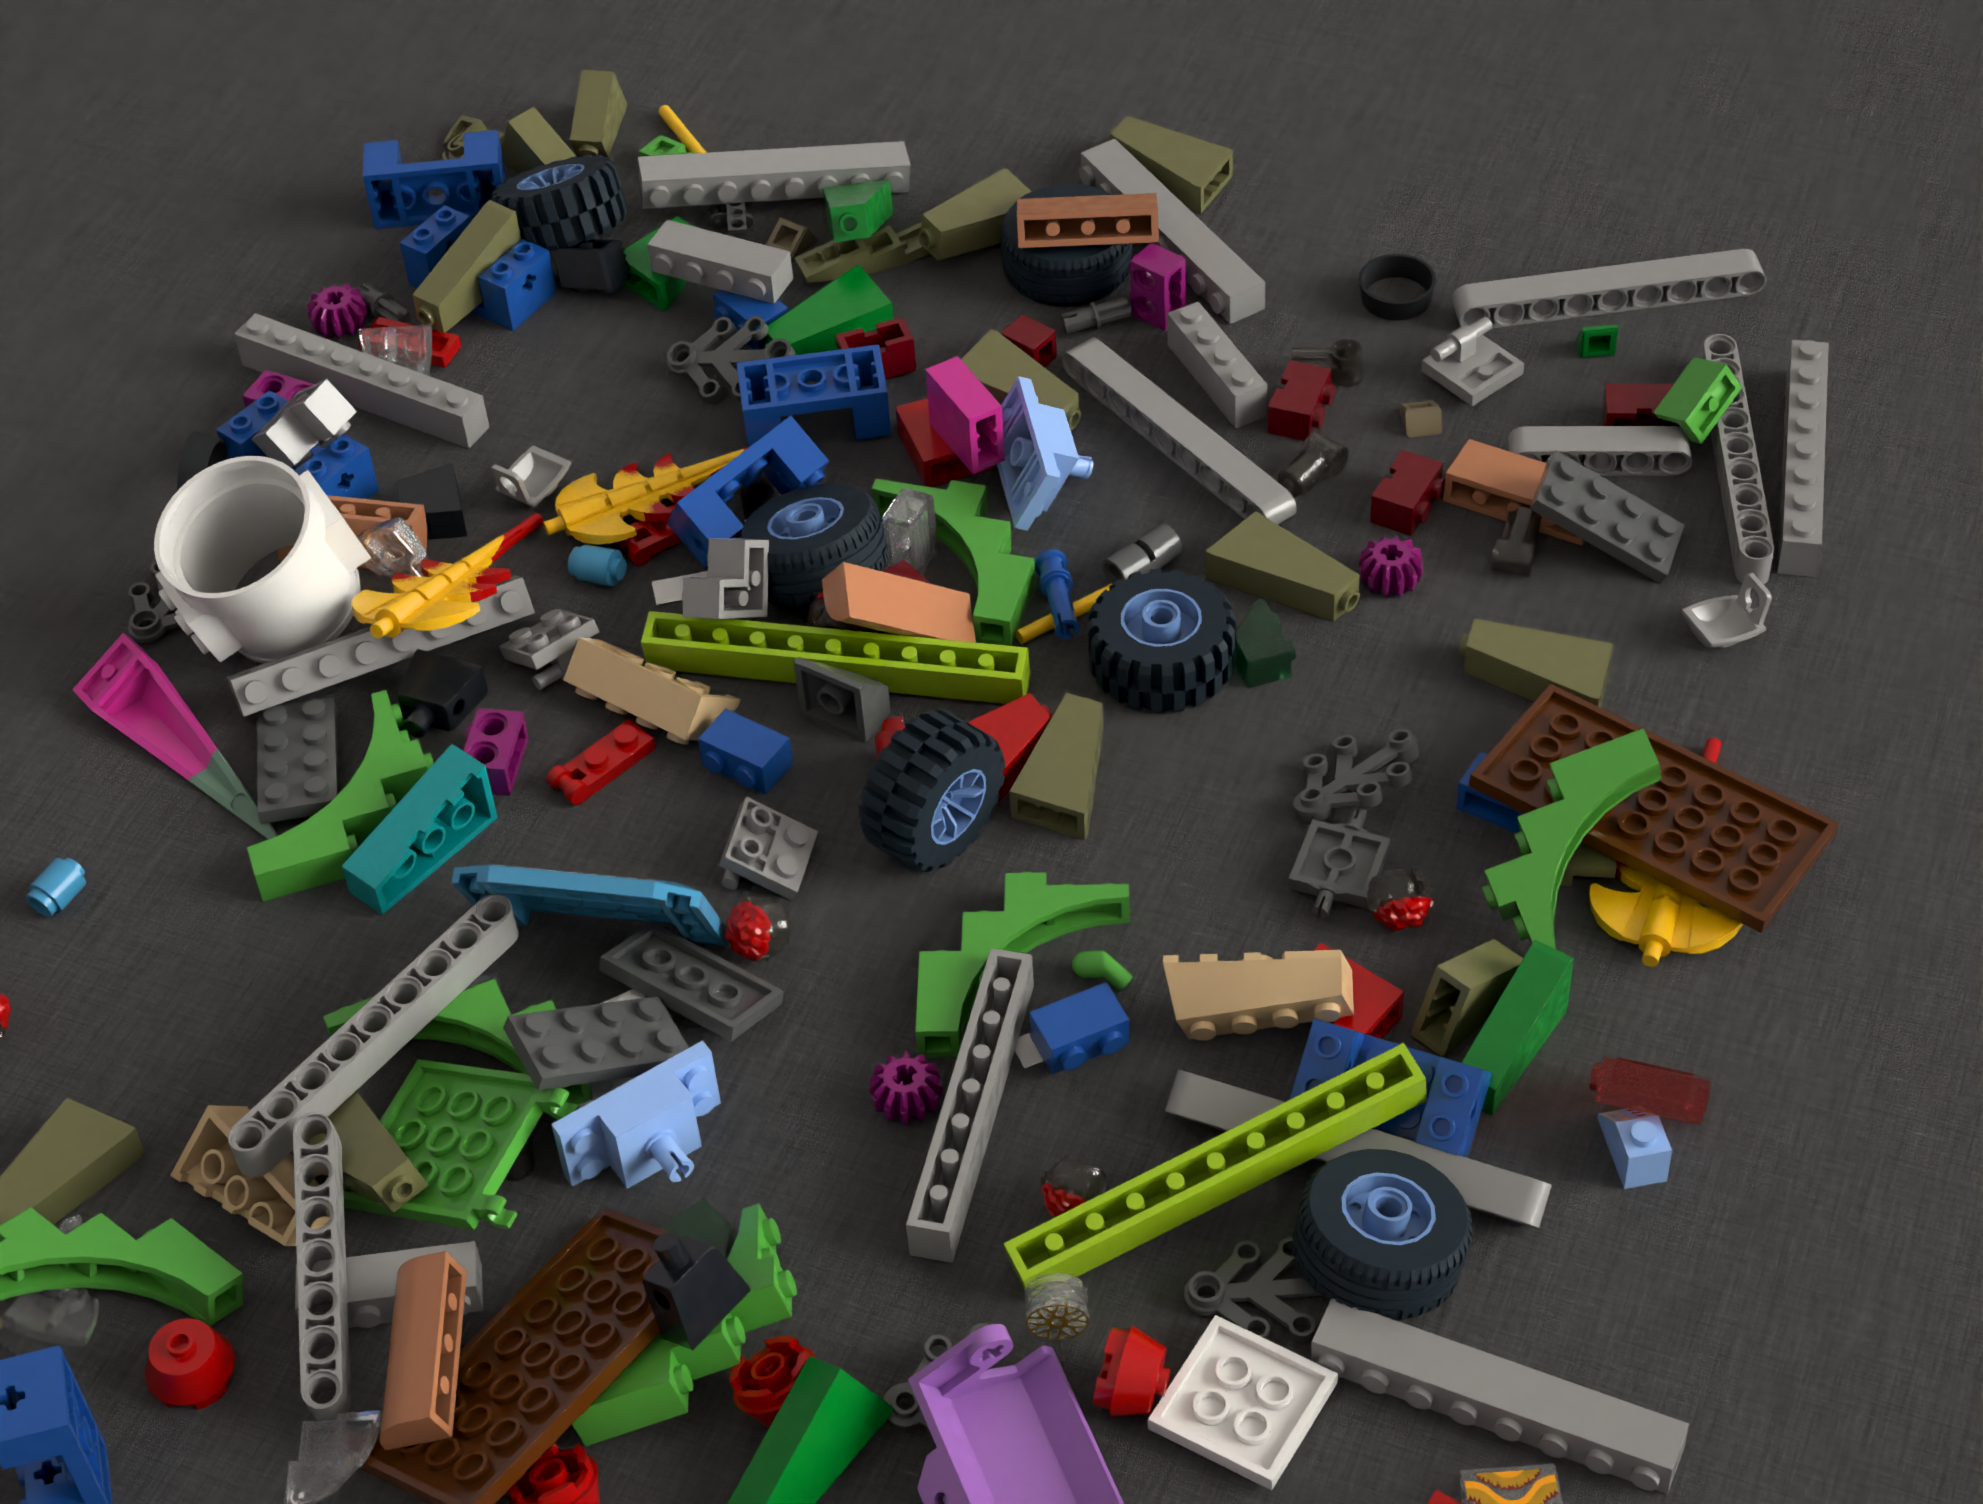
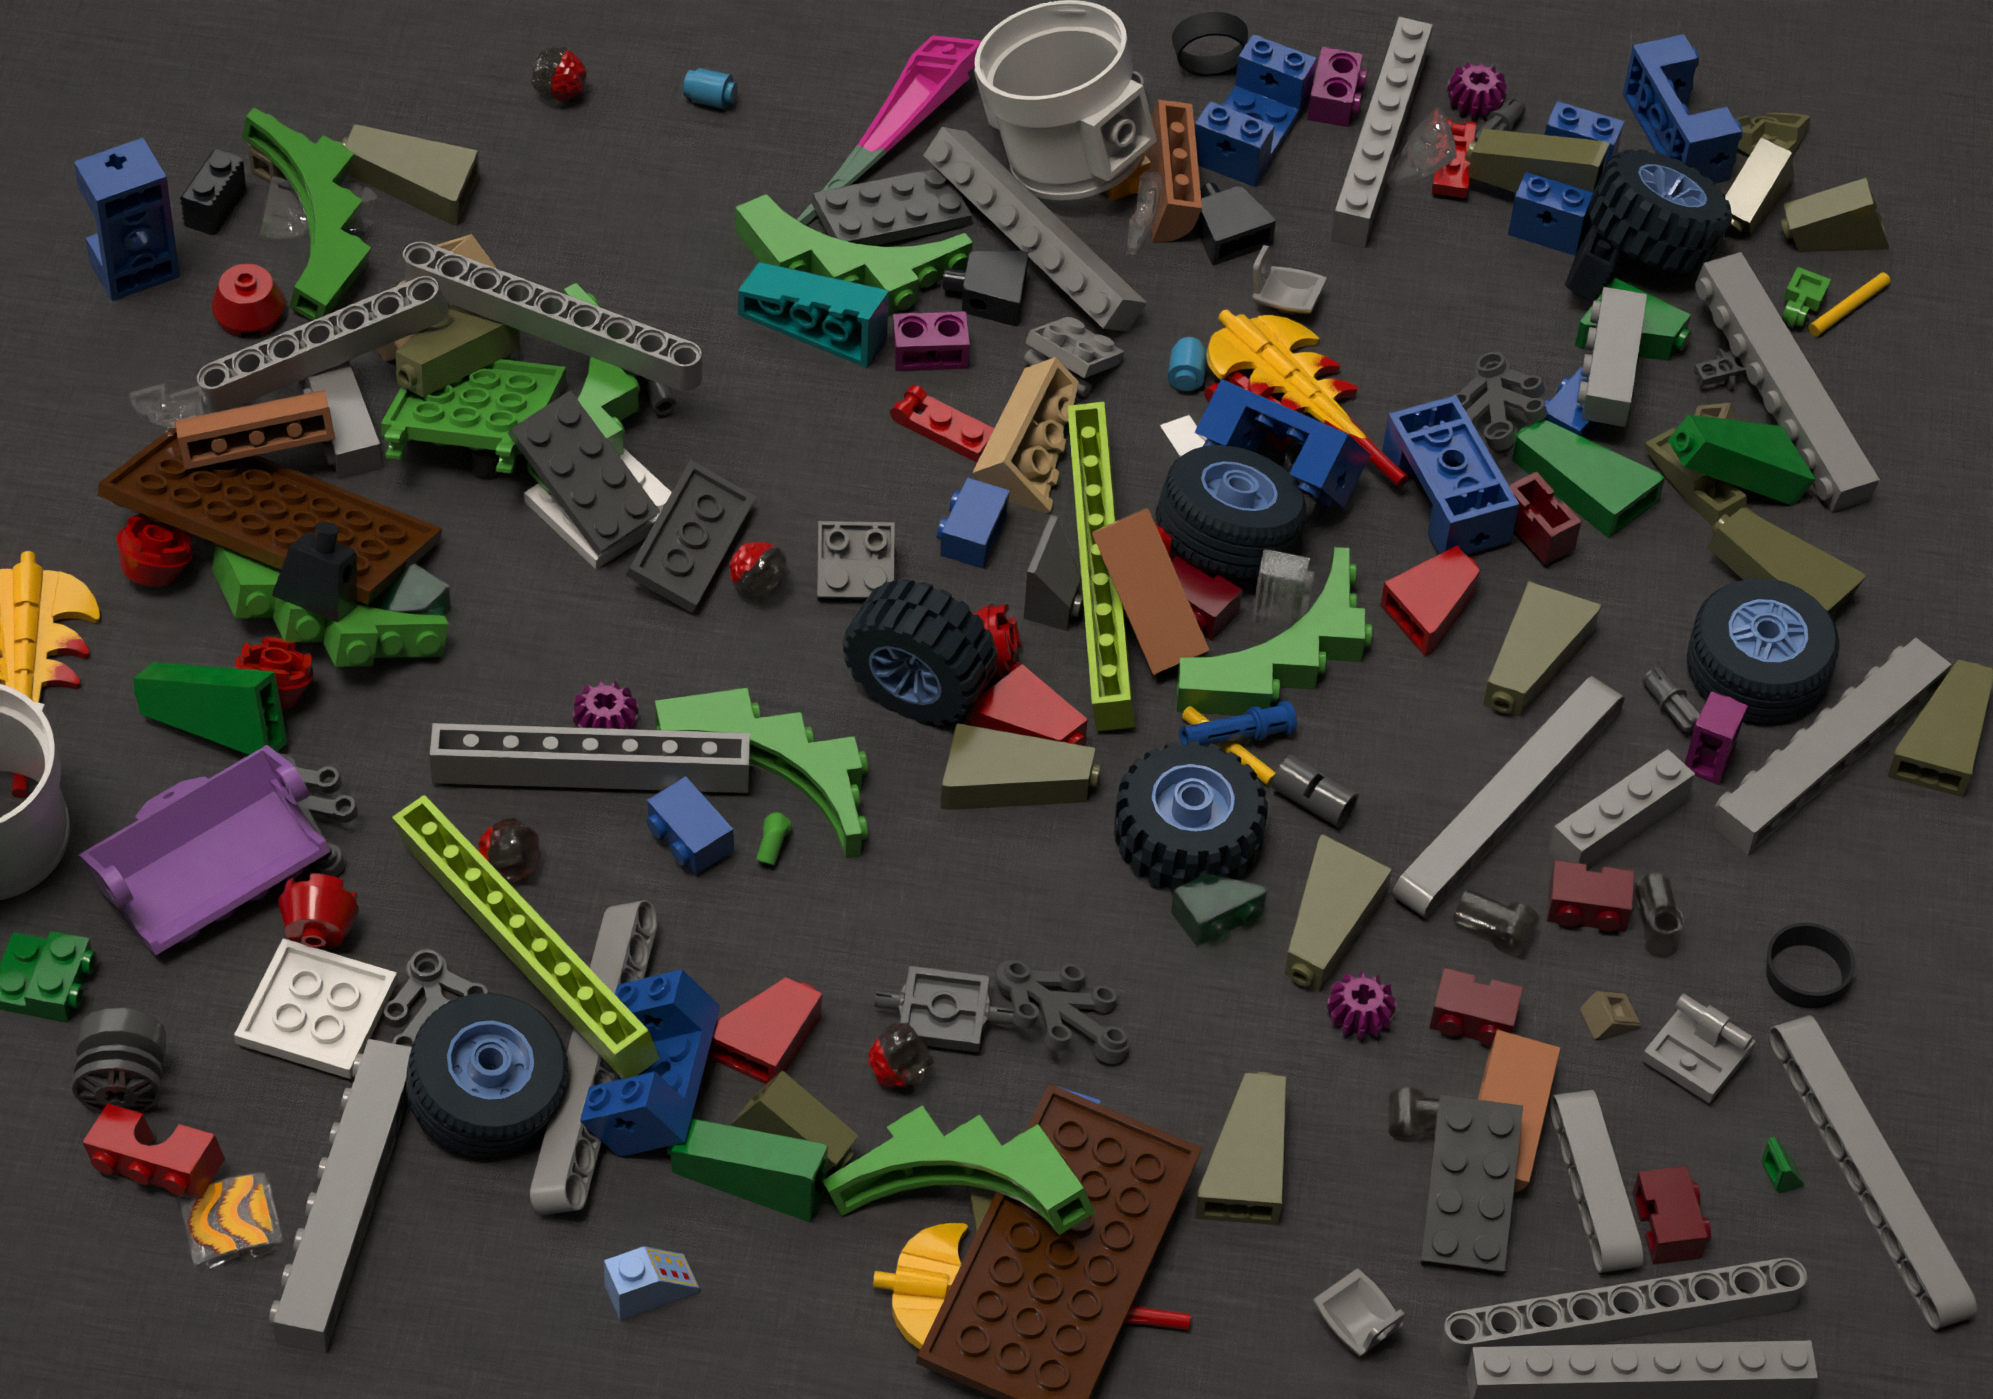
camera: 70 degrees right, 5 degrees up
(304, 421) = (1273, 93): light grey brick -> none
(445, 591) = (1042, 223): yellow animal -> none
(594, 897) = (732, 432): dark azure slope -> none
(642, 1123) = (522, 531): light blue brick -> none
(734, 581) = (1138, 454): light grey brick -> none
(965, 414) = (1427, 588): dark pink brick -> none
(1033, 339) = (1603, 648): dark red brick -> none
(1036, 454) = (1414, 671): light blue brick -> none
(1056, 1303) = (389, 855): clear wheel -> none
(1087, 220) = (1758, 641): nougat brick -> none
(1258, 991) = (740, 946): tan wedge -> none
(1651, 1089) = (694, 1318): clear red window -> none
(1699, 398) = (1671, 1250): bright green panel -> none

